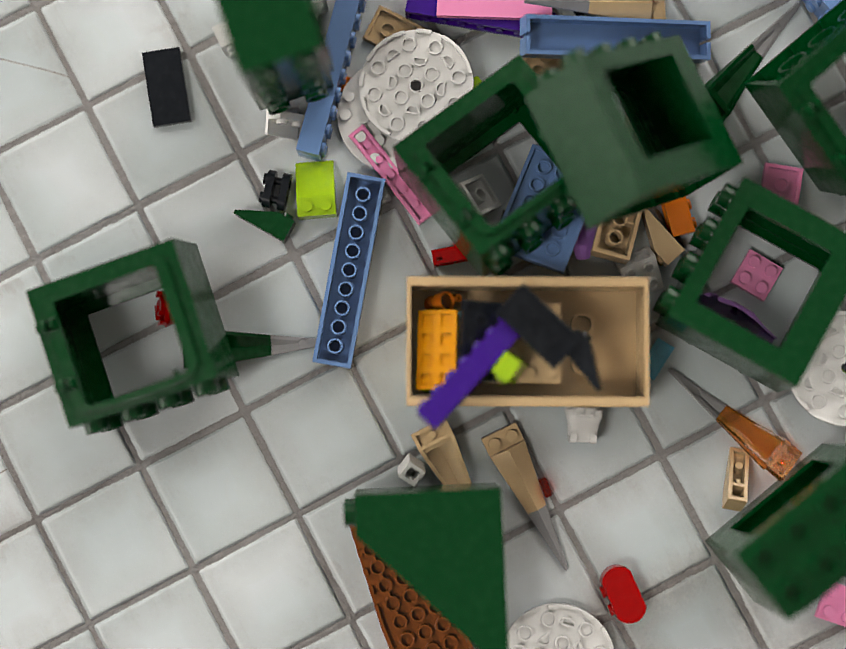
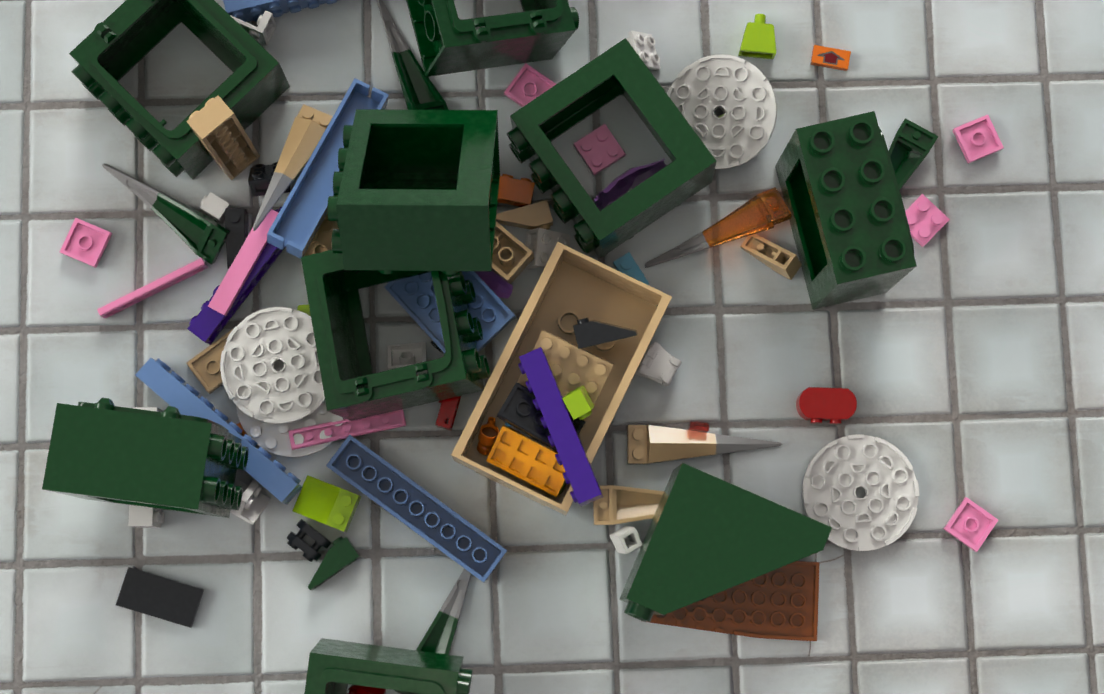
camera: 70 degrees left, 5 degrees down
(538, 326) = (553, 358): black tile -> none

